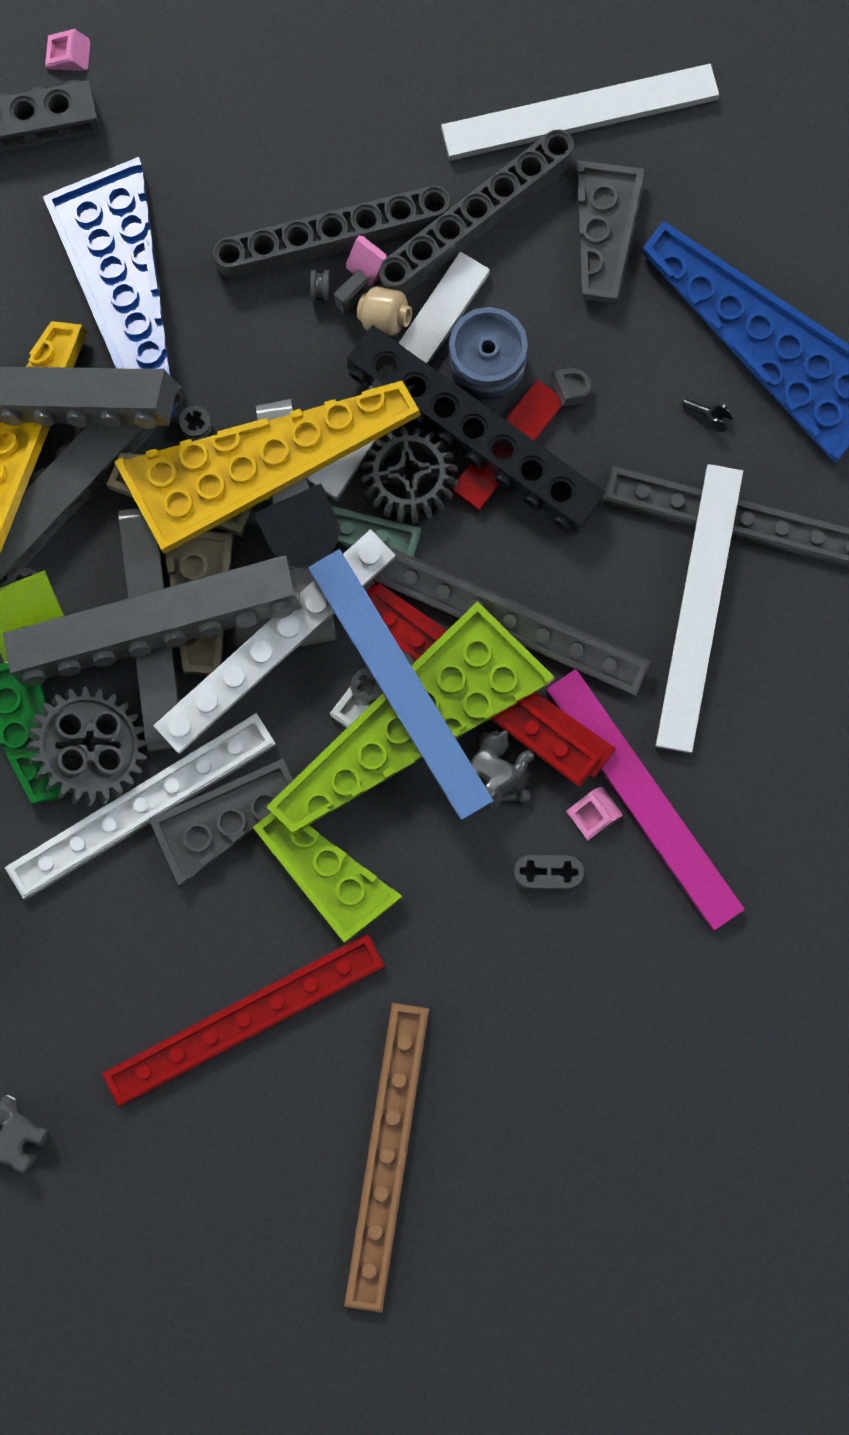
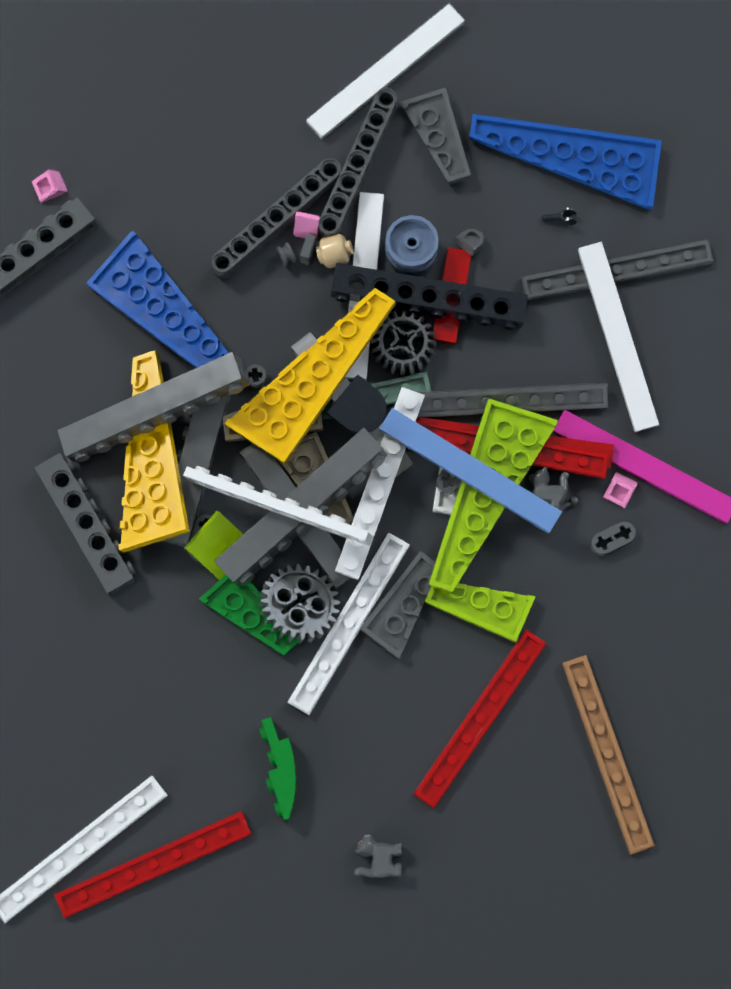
camera: 30 degrees left, 0 degrees up
(128, 610) = (287, 508): none -> white plate

